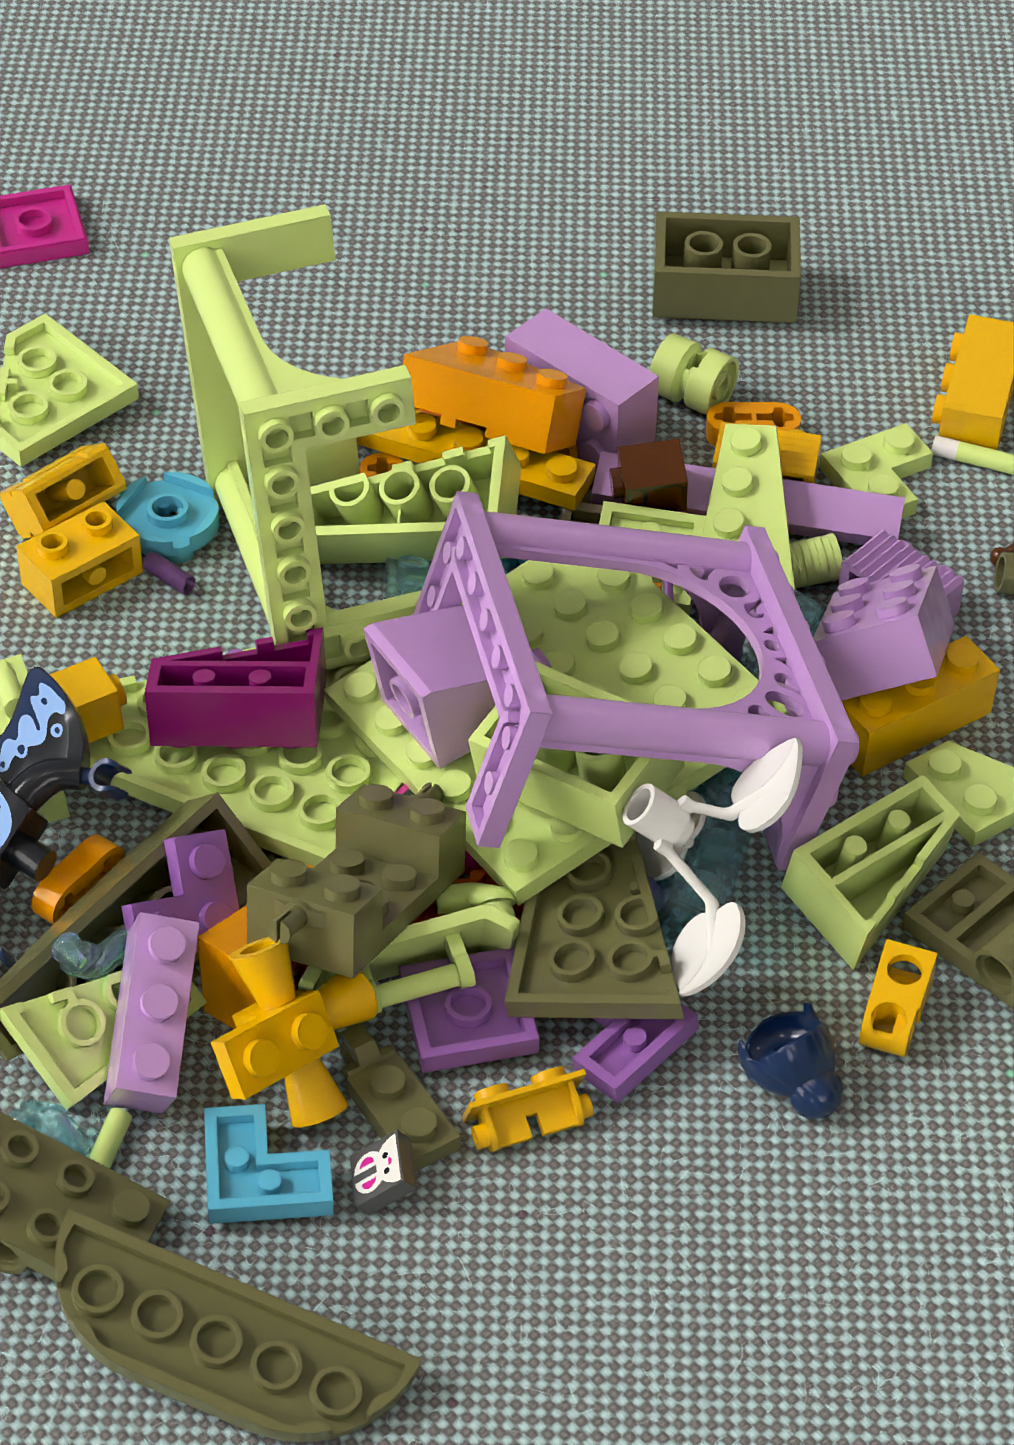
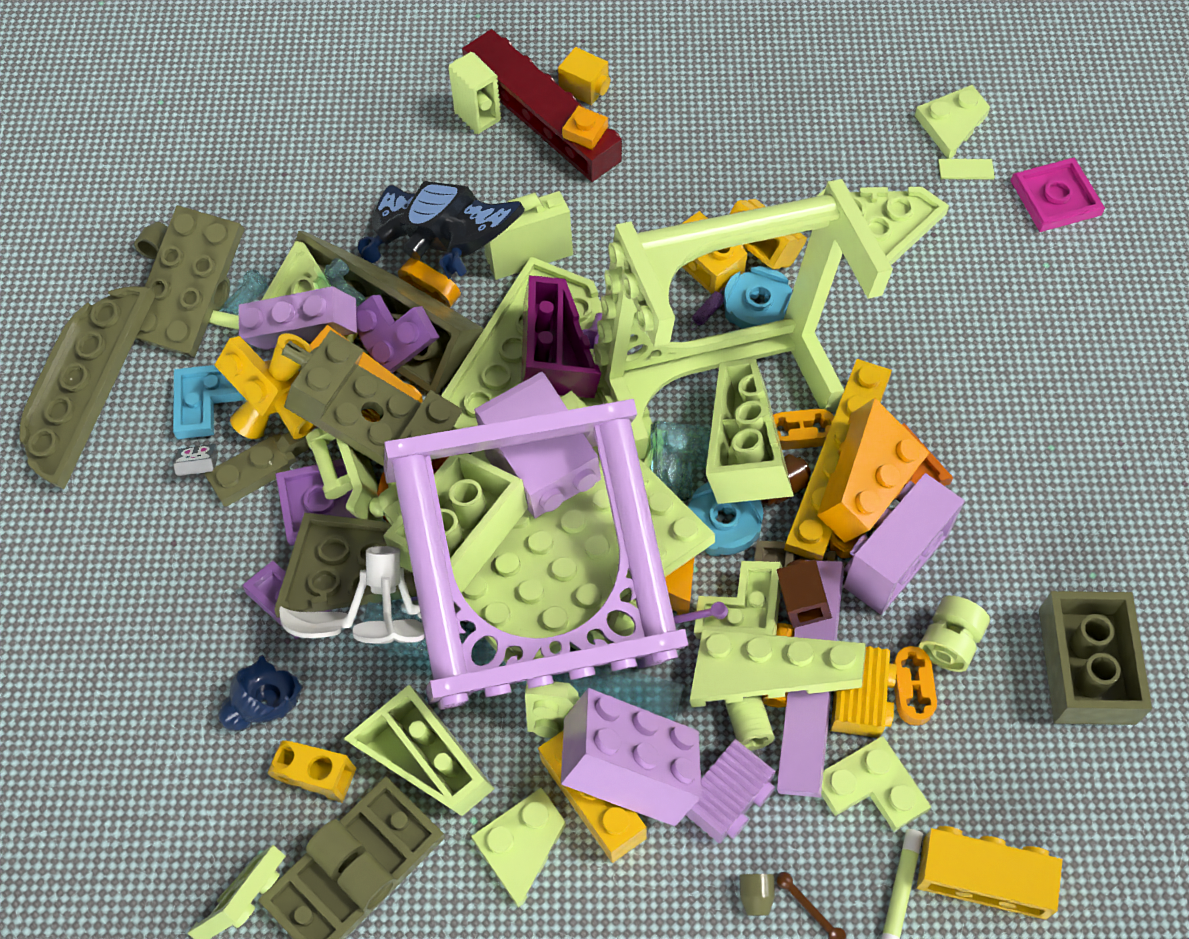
camera: 90 degrees right, 15 degrees up
(95, 697) = (553, 255): yellow brick -> none
(505, 1112) = (237, 524): yellow hinge -> none

